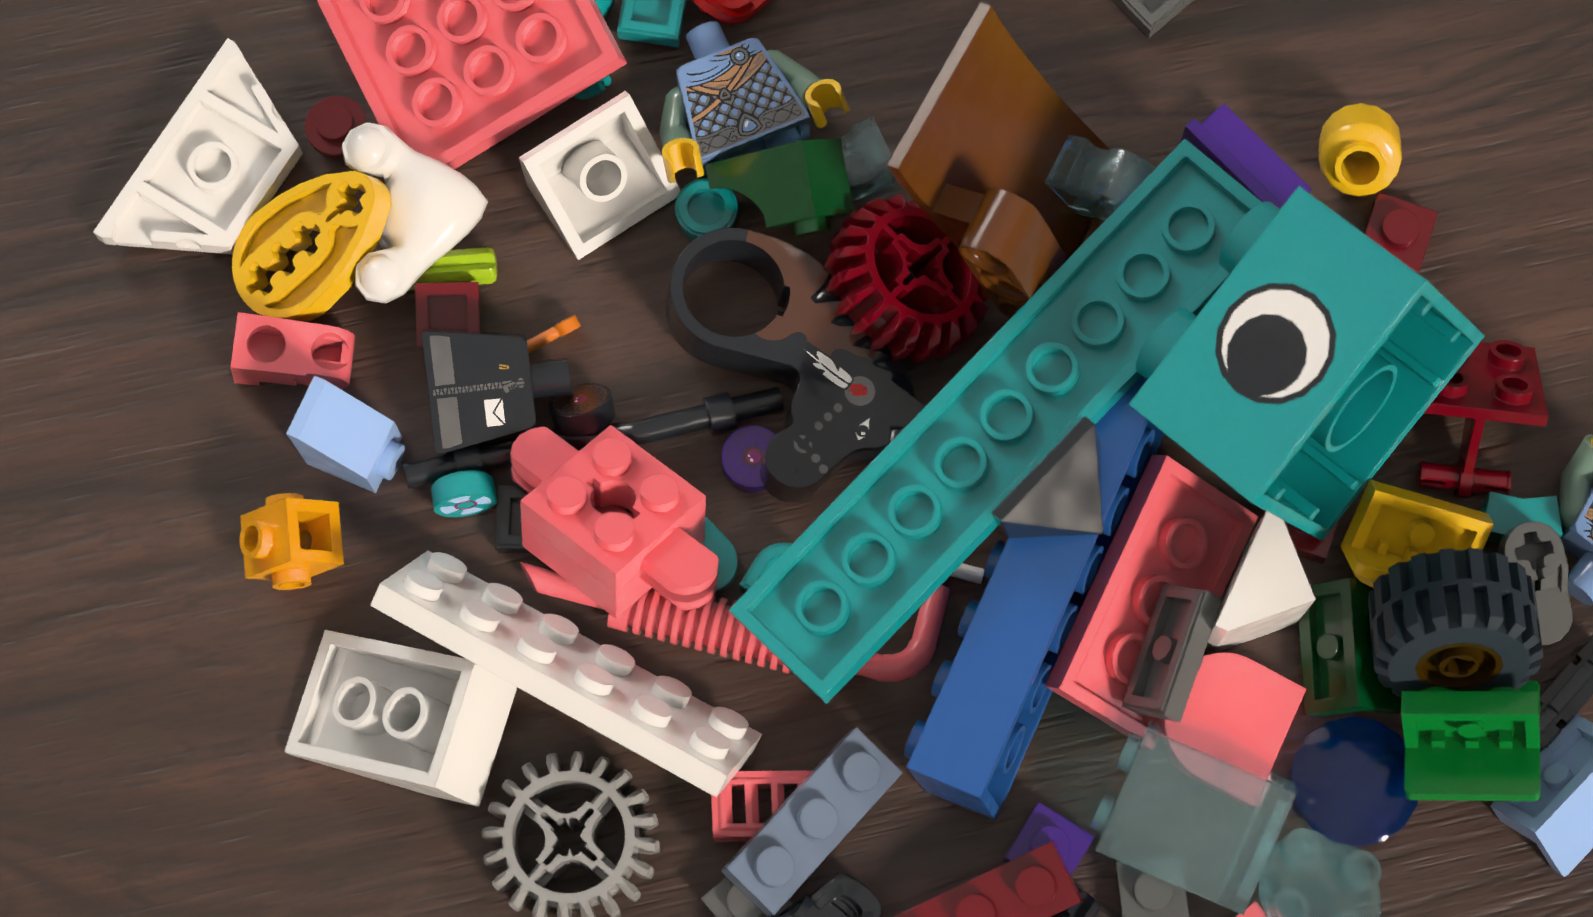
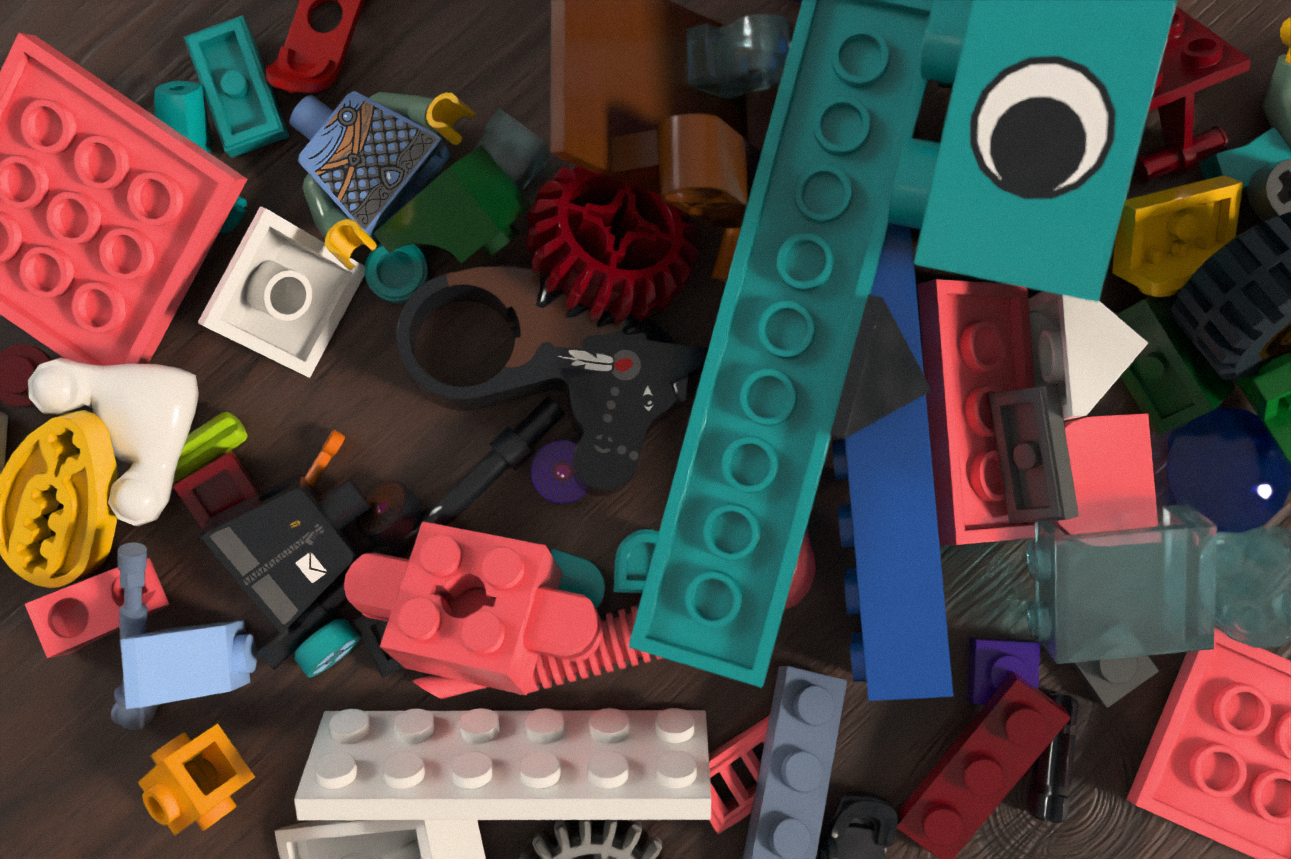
camera: 30 degrees left, 10 degrees up
(274, 449) = (132, 622): none -> sand blue piece

